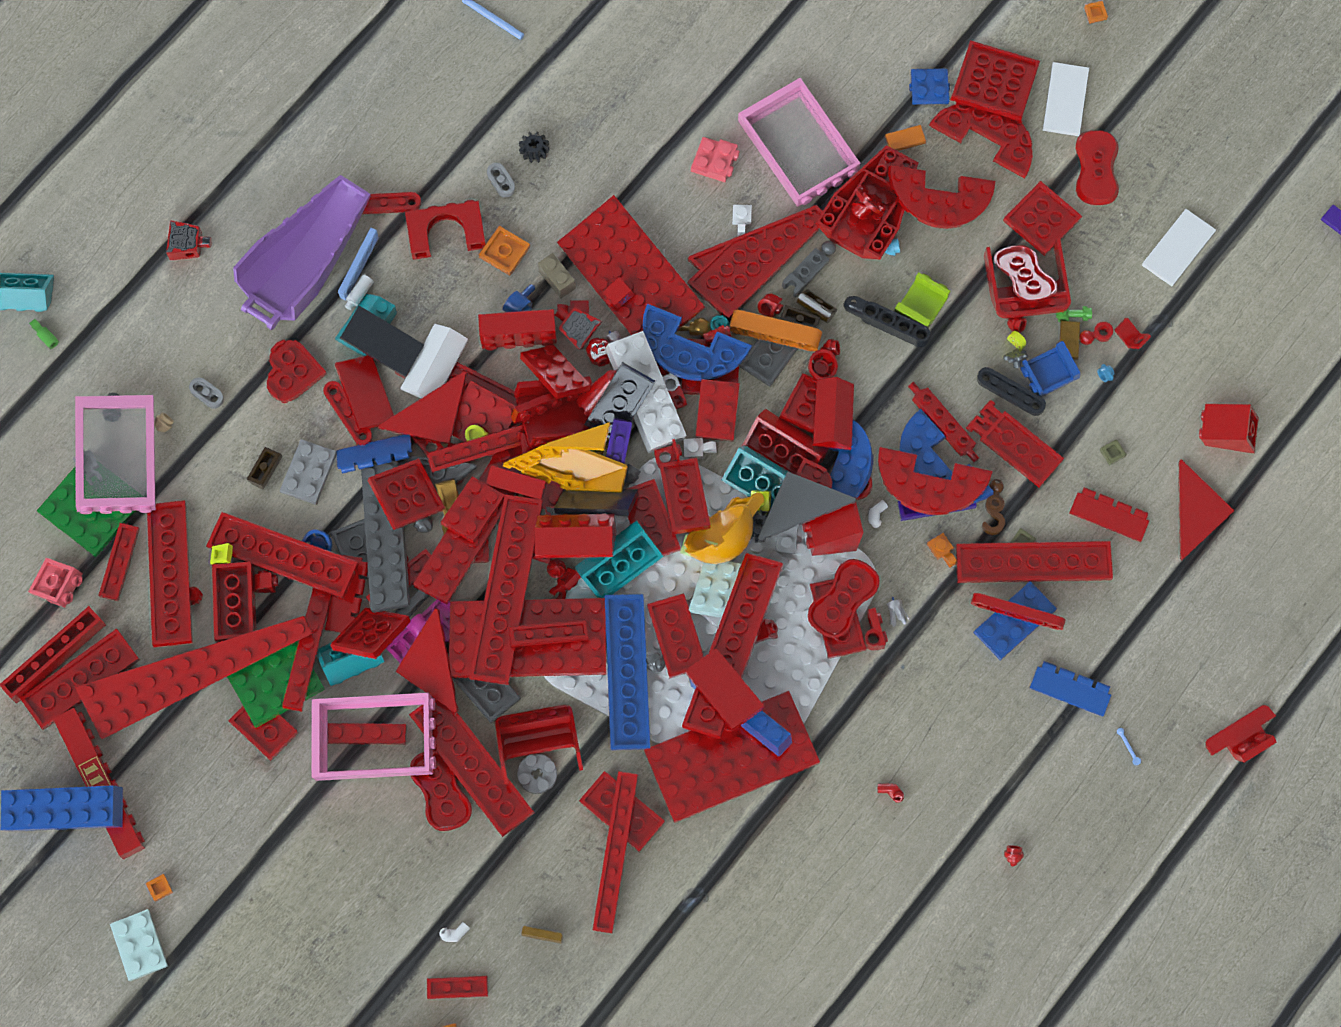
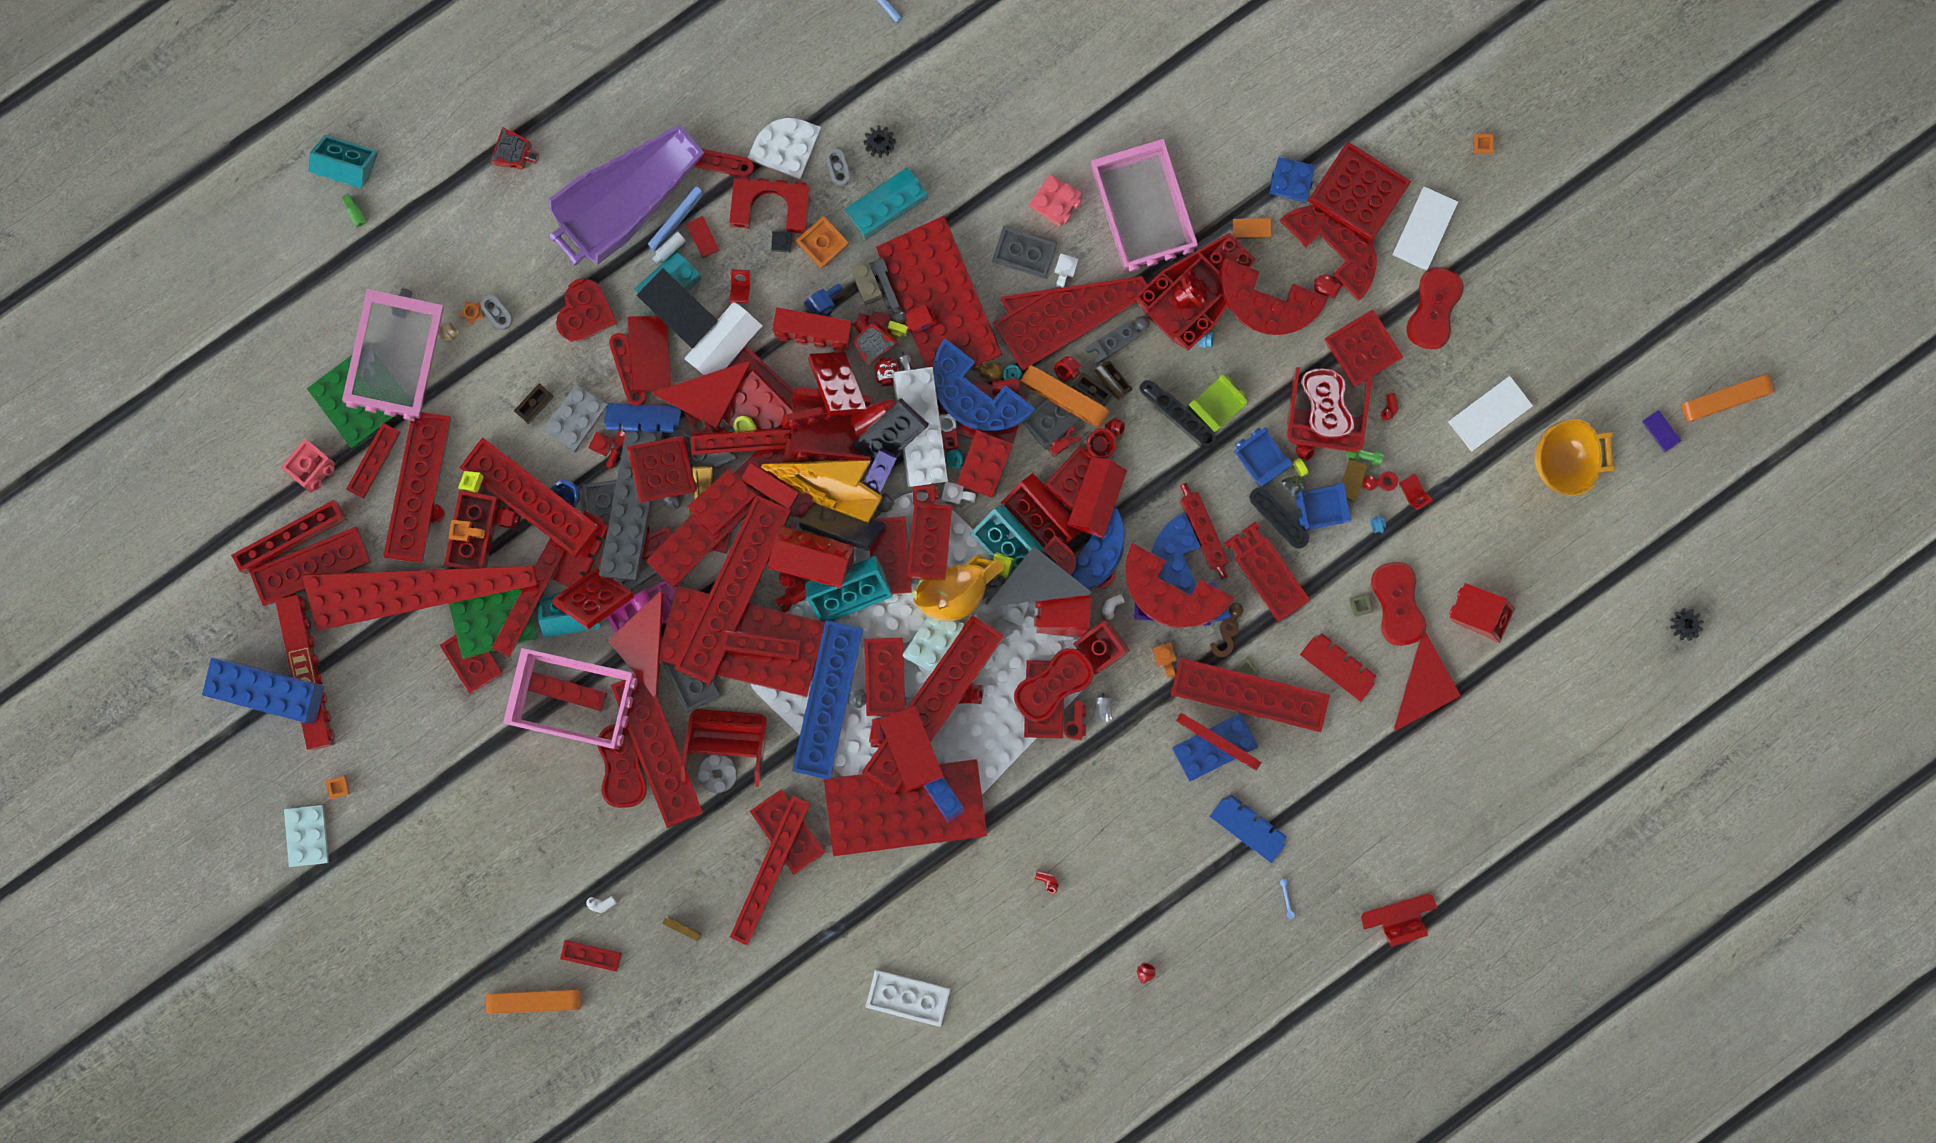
camera: 20 degrees right, 10 degrees up
(178, 395) = (472, 307): none -> orange plate
(225, 600) = (462, 531): none -> orange plate
(339, 489) = (601, 444): none -> red plate
(356, 482) = (618, 443): none -> red piece
(388, 275) = (702, 237): none -> red tile
(438, 313) = (739, 289): none -> red bracket
(445, 174) = (785, 146): none -> white plate
(465, 260) = (781, 241): none -> black plate
(556, 200) = (886, 203): none -> teal slope
(584, 286) = (880, 271): none -> dark grey plate
(599, 310) = (897, 330): none -> neon yellow plate
(684, 691) = (876, 734): none -> red cone
(687, 415) = (955, 458): none -> teal tile
(698, 212) = (1024, 252): none -> dark grey tile
(784, 377) = (1060, 445): none -> red plate
(786, 943) = (908, 998): none -> white tile
(879, 552) = (1102, 646): none -> red slope
(977, 340) = (1262, 457): none -> blue panel
(991, 171) = (1327, 285): none -> red animal
(1085, 266) = (1392, 407): none -> red arm
(1142, 430) = (1401, 618): none -> red plate
(1267, 262) = (1571, 456): none -> light orange windscreen

